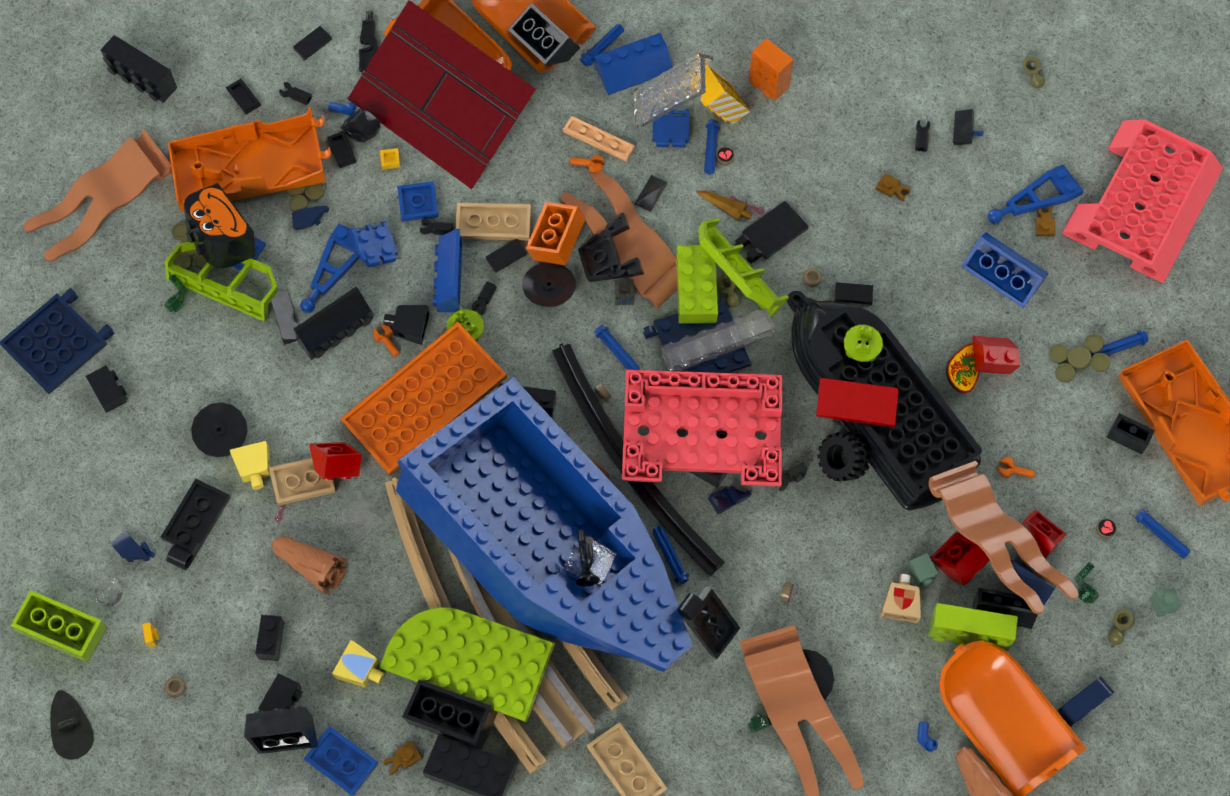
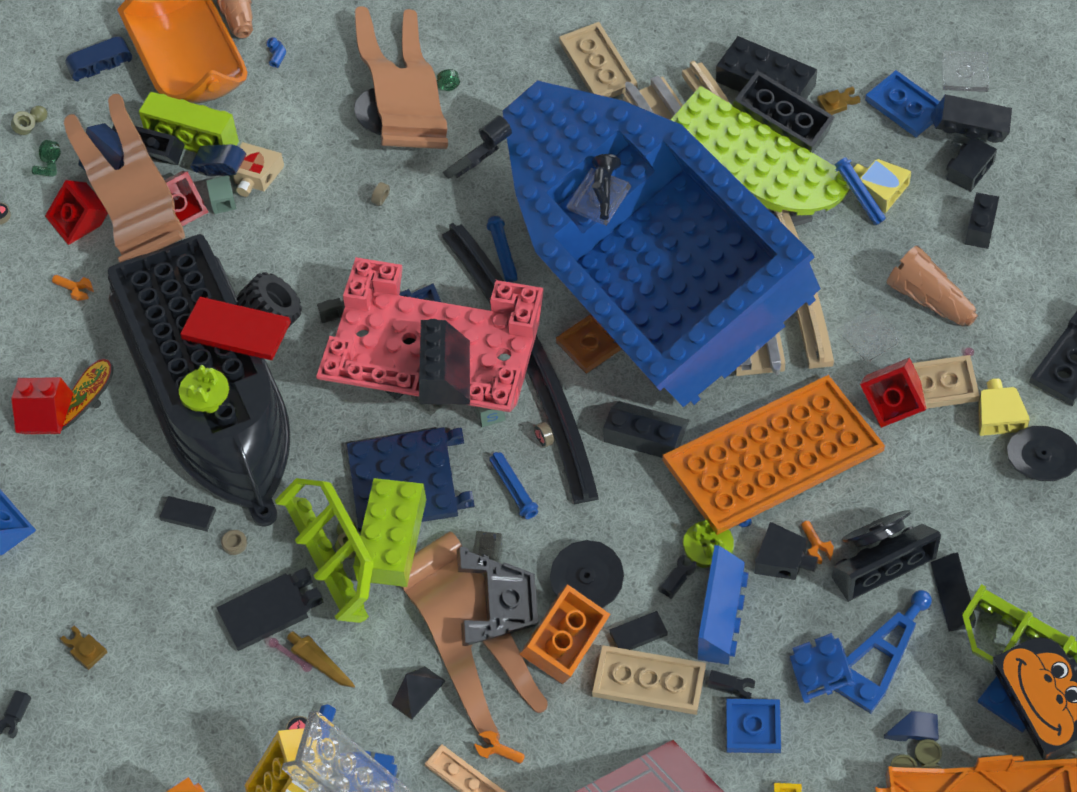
camera: 165 degrees left, 10 degrees down
(341, 341) = (878, 529): none -> black piece
(389, 661) = (860, 191): none -> blue axle
(683, 389) = (443, 364): none -> black slope
(717, 341) = (384, 458): clear brick -> none
(932, 591) = (218, 160): none -> dark blue beam

